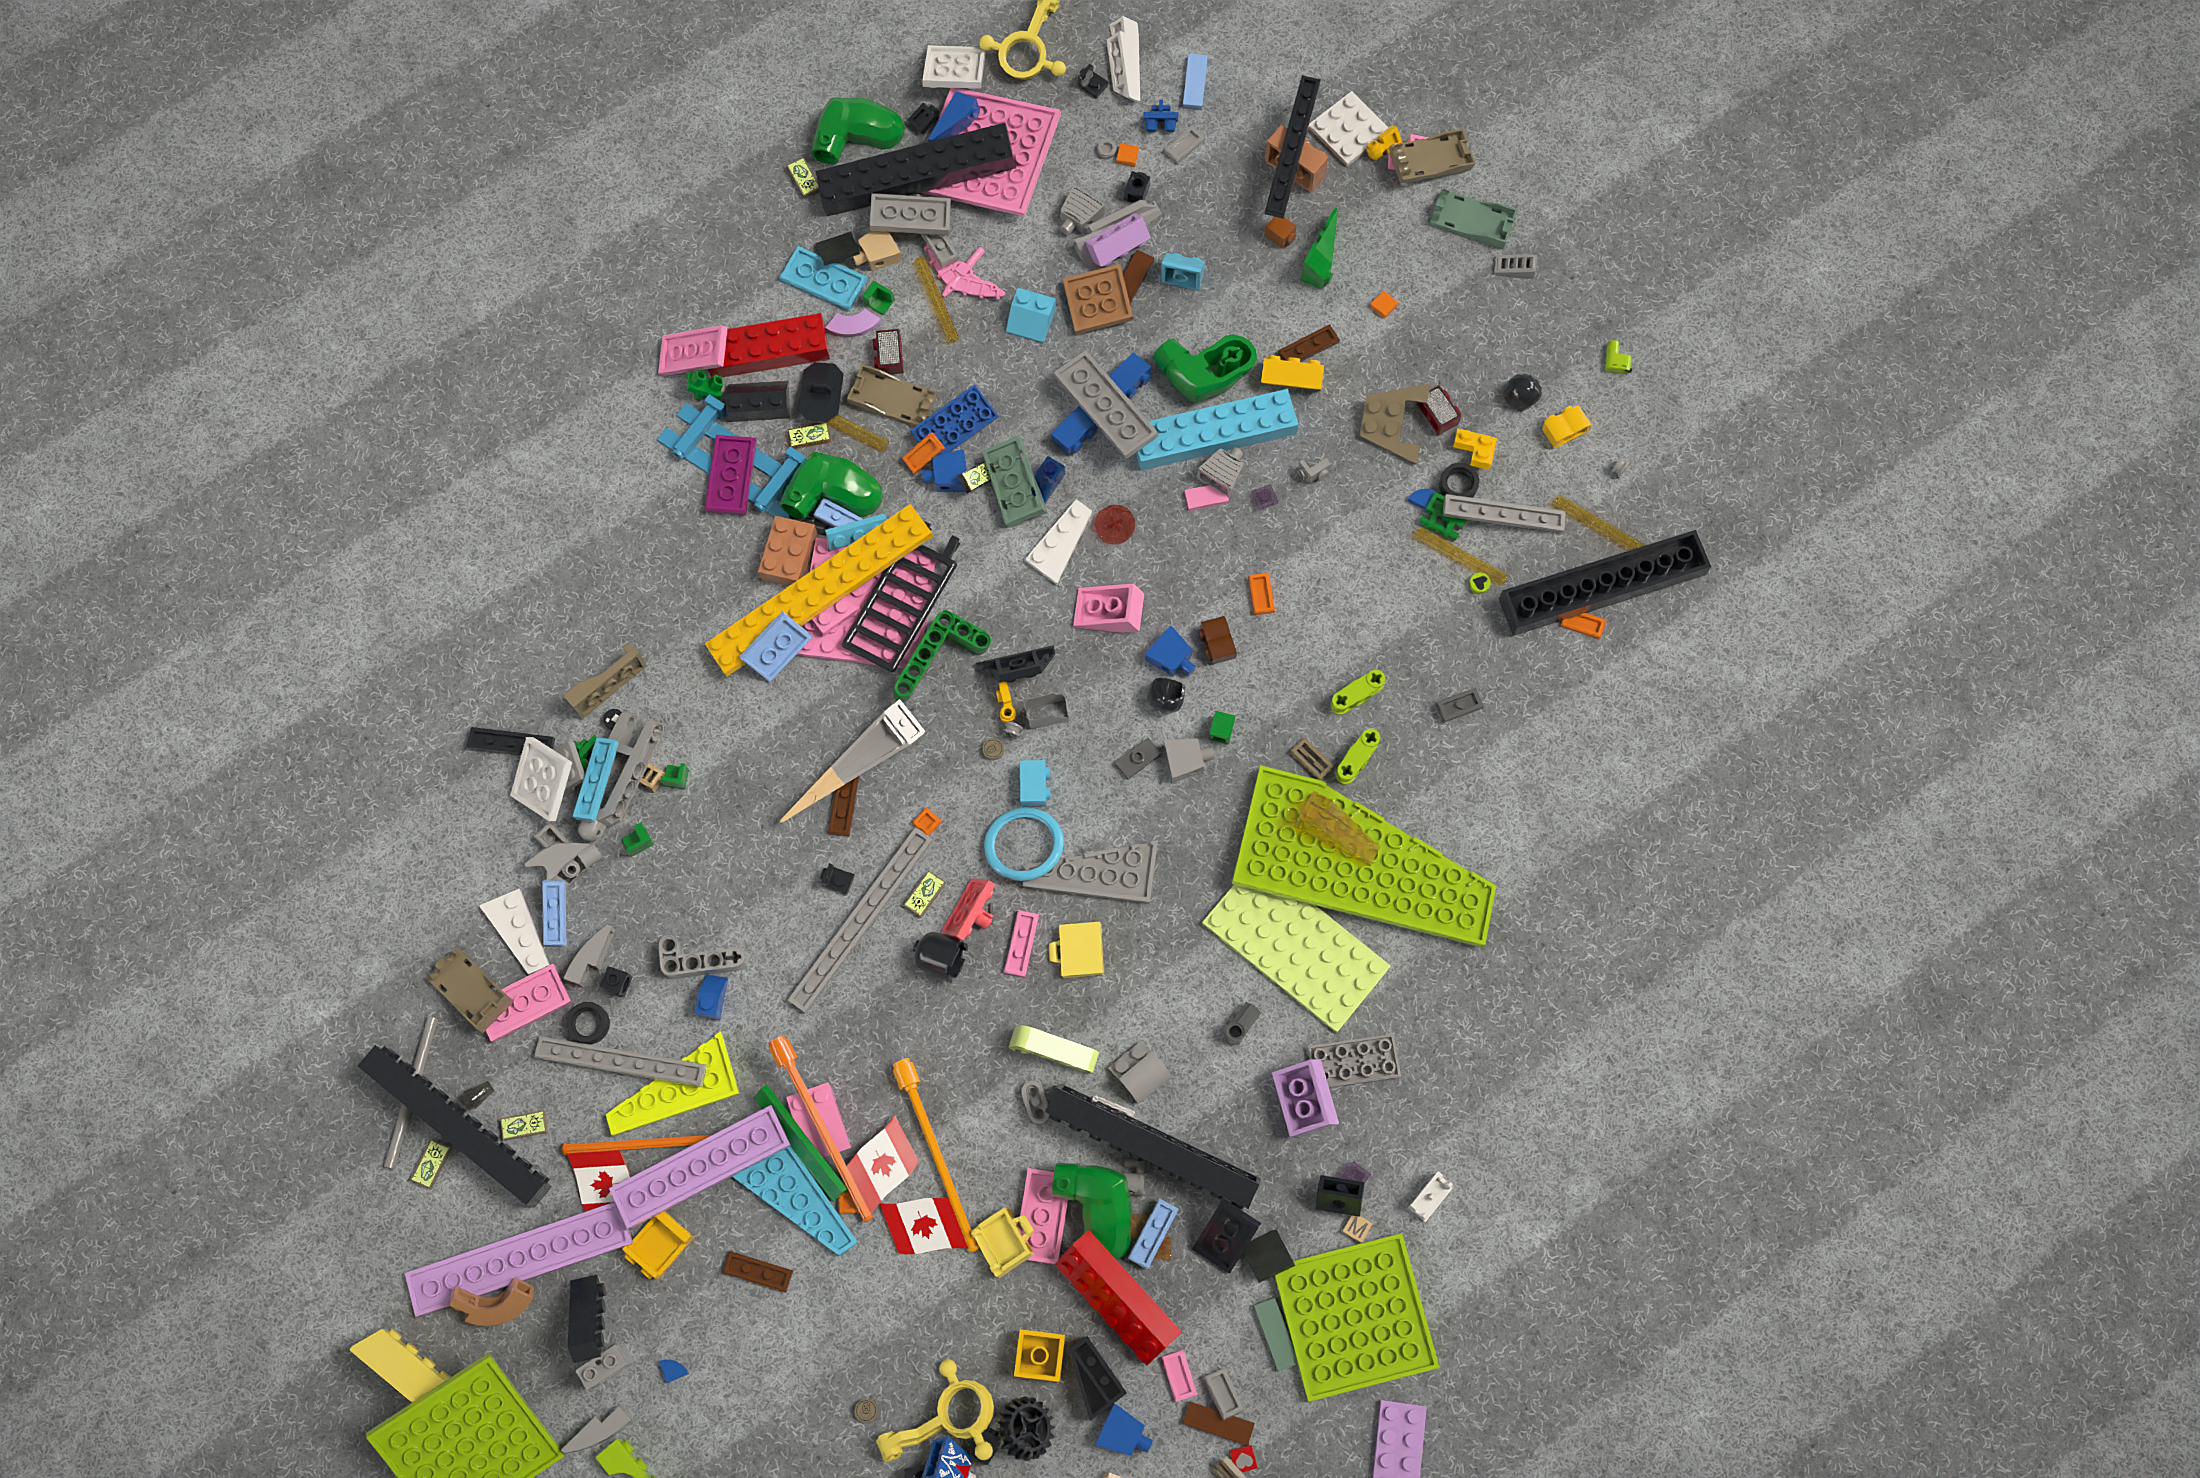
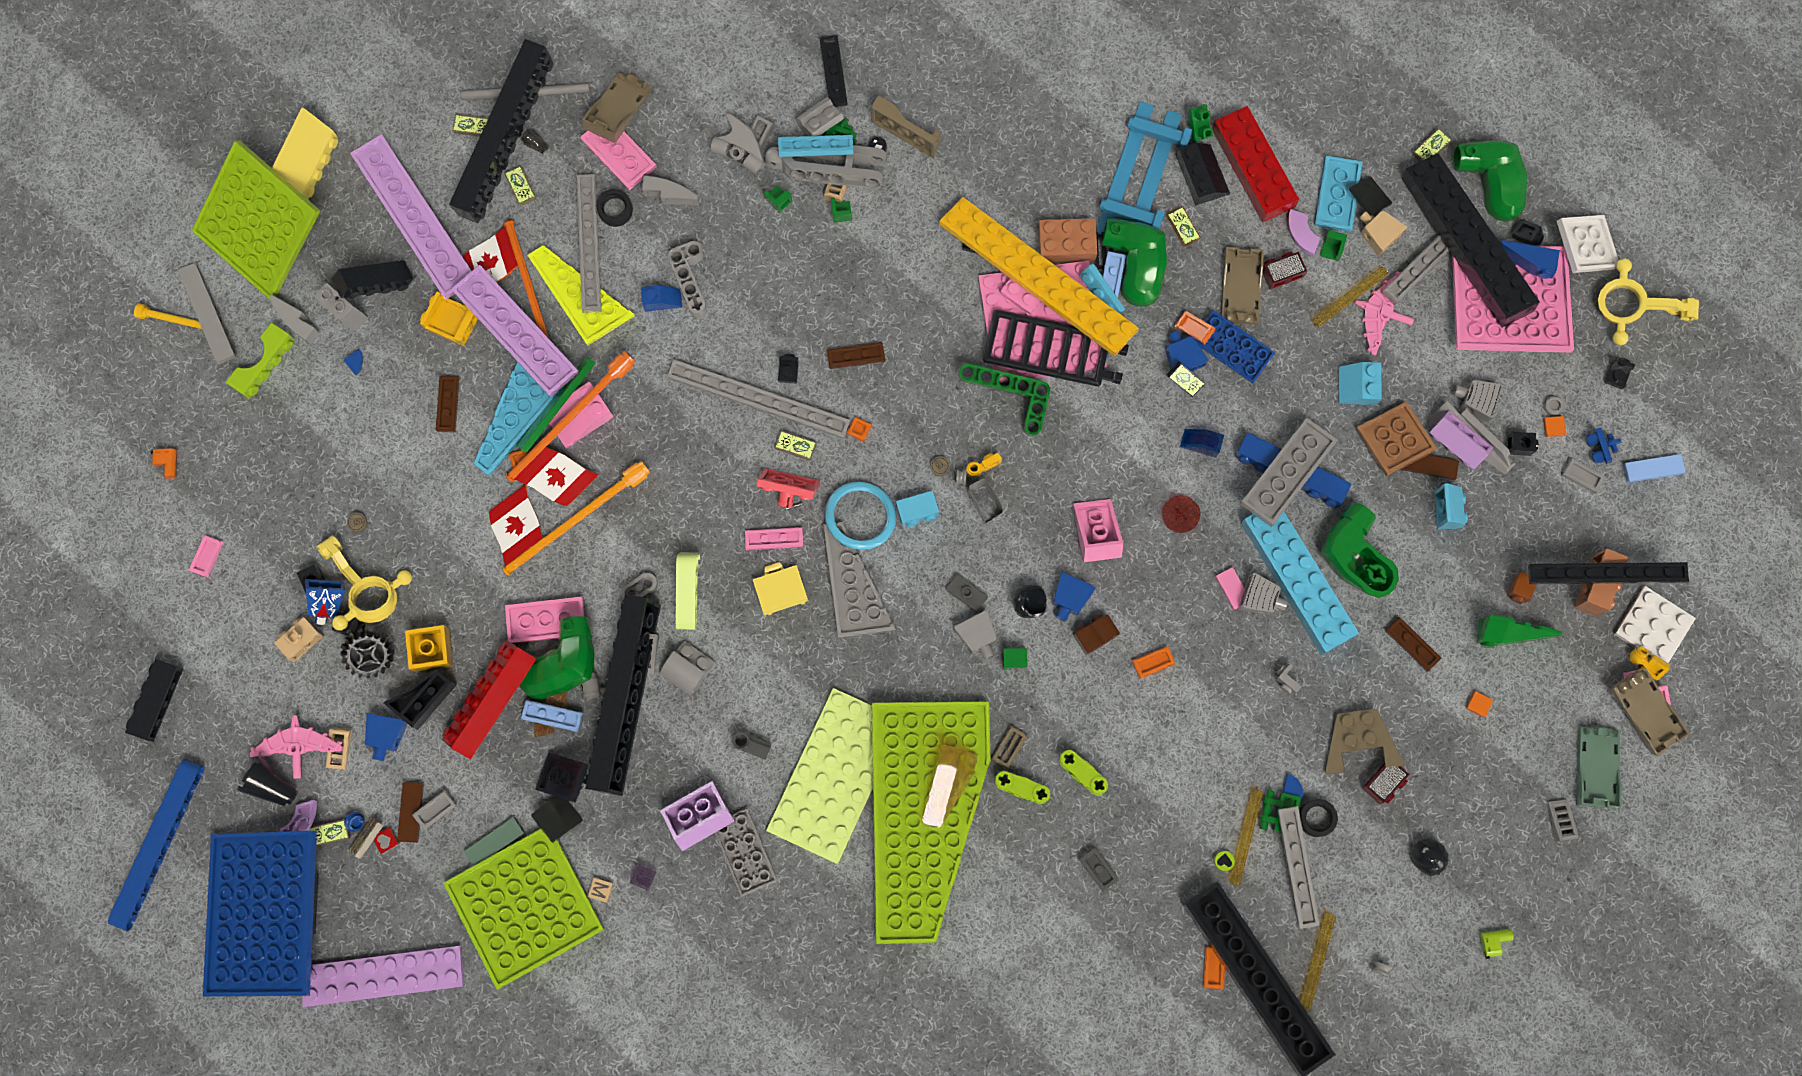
camera: 75 degrees right, 5 degrees up
(495, 1309) = (367, 206): medium nougat arch -> none
(515, 925) = (678, 128): white wing -> none
(541, 779) = (804, 102): white plate -> none
(554, 912) = (697, 151): light blue tile -> none
(616, 981) = (653, 218): black brick -> none
(692, 350) = (1227, 102): bright pink plate -> none
(730, 475) = (1125, 172): magenta tile -> none
(776, 646) = (975, 255): light blue tile -> none
(820, 392) = (1226, 223): black shield -> none
(859, 432) = (1202, 254): clear yellow axle -> none
(882, 738) = (921, 370): light grey plate -> none
(910, 214) = (1422, 247): light grey plate -> none
(940, 955) = (742, 472): black cylinder -> none
(1003, 1241) = (515, 593): light yellow piece -> none
(1014, 482) = (1191, 413): sand green piece -> none
(1018, 665) = (1020, 465): black wing -> none
(1057, 546) = (1141, 468): white wing -> none
(1124, 58) = (1655, 396): white wedge -> none
(1179, 1375) = (441, 769): bright pink tile -> none
(1264, 497) = (1248, 641): clear purple plate -> none
(1292, 373) = (1378, 635): yellow brick -> none
(1340, 1195) = (620, 867): black brick -> none
(1431, 1196) = (641, 948): white hinge -> none
(1481, 446) = (1363, 826): yellow plate -> none
(1566, 426) = (1408, 907): yellow brick -> none

